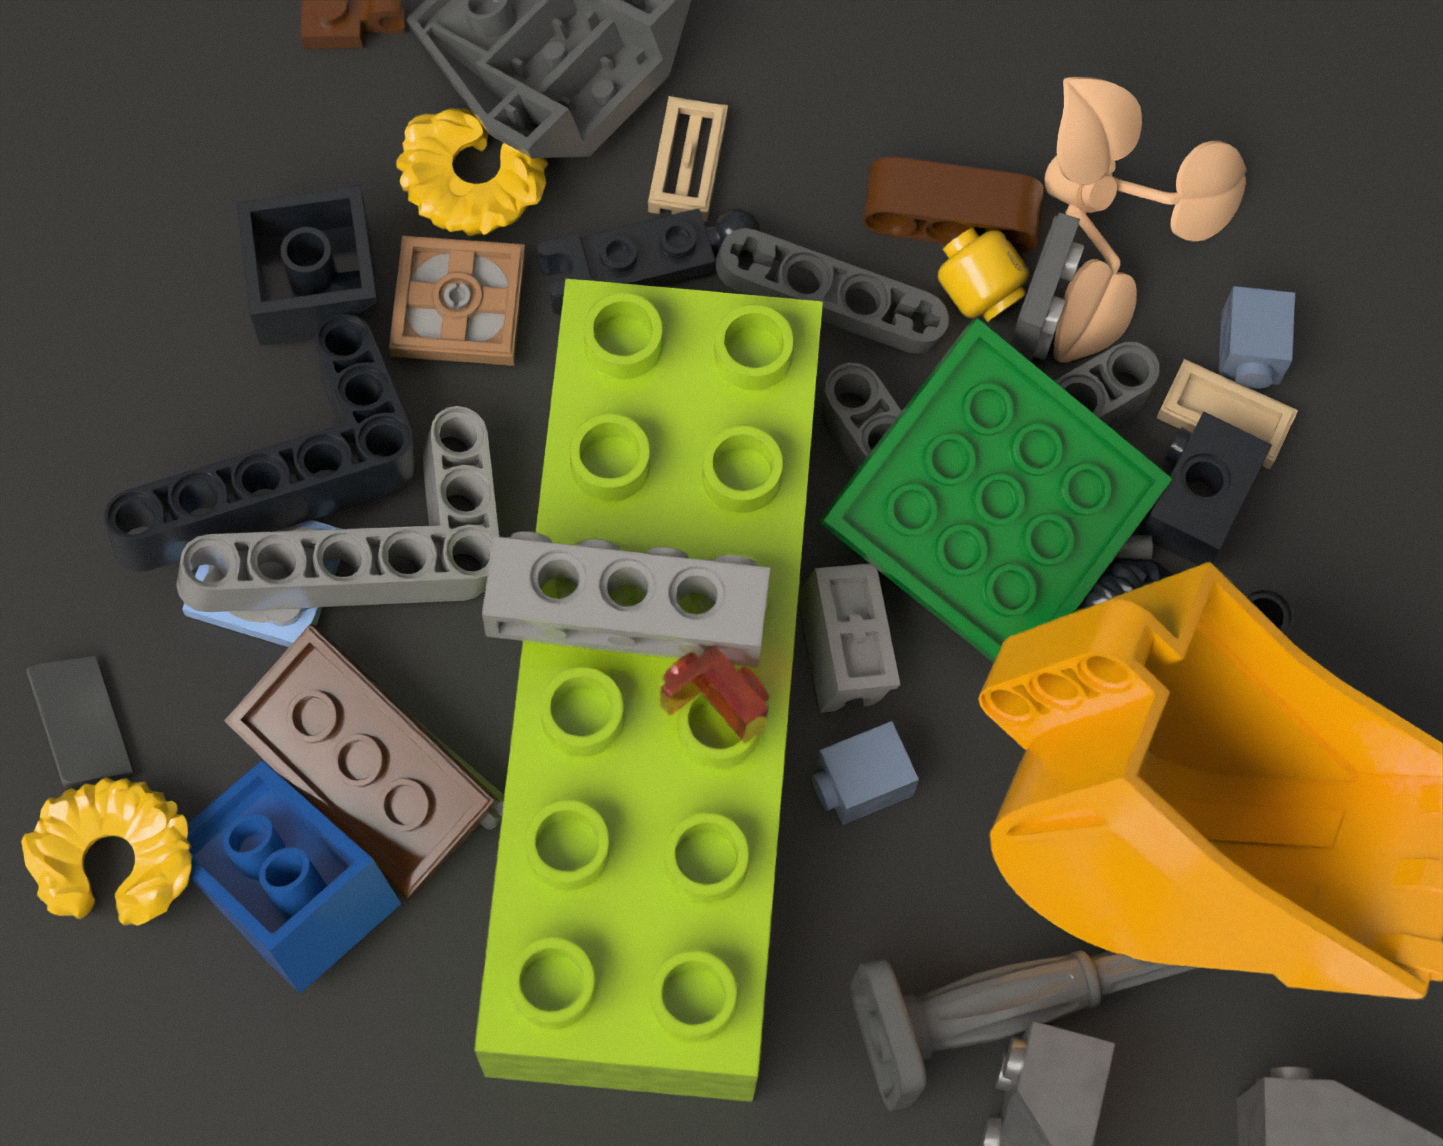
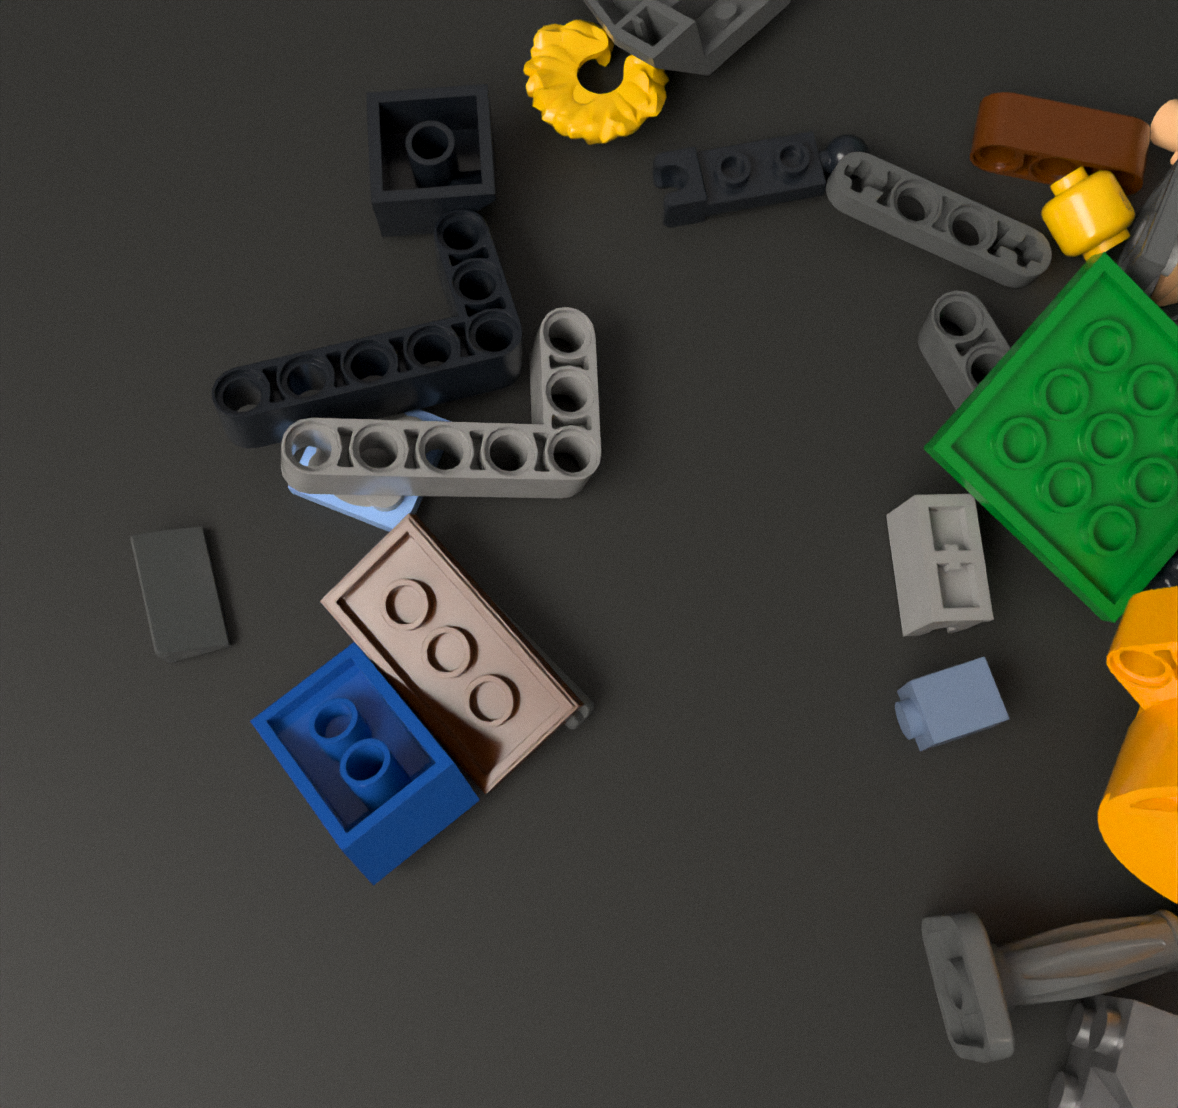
camera: 10 degrees right, 5 degrees up
(100, 810) = (189, 683): yellow piece -> none
(457, 300) = (573, 206): medium nougat piece -> none
(590, 619) = (771, 552): light grey brick -> none
(628, 834) = (754, 618): lime brick -> none
(680, 201) = (791, 124): tan tile -> none
(733, 693) = (845, 631): clear red bracket -> none

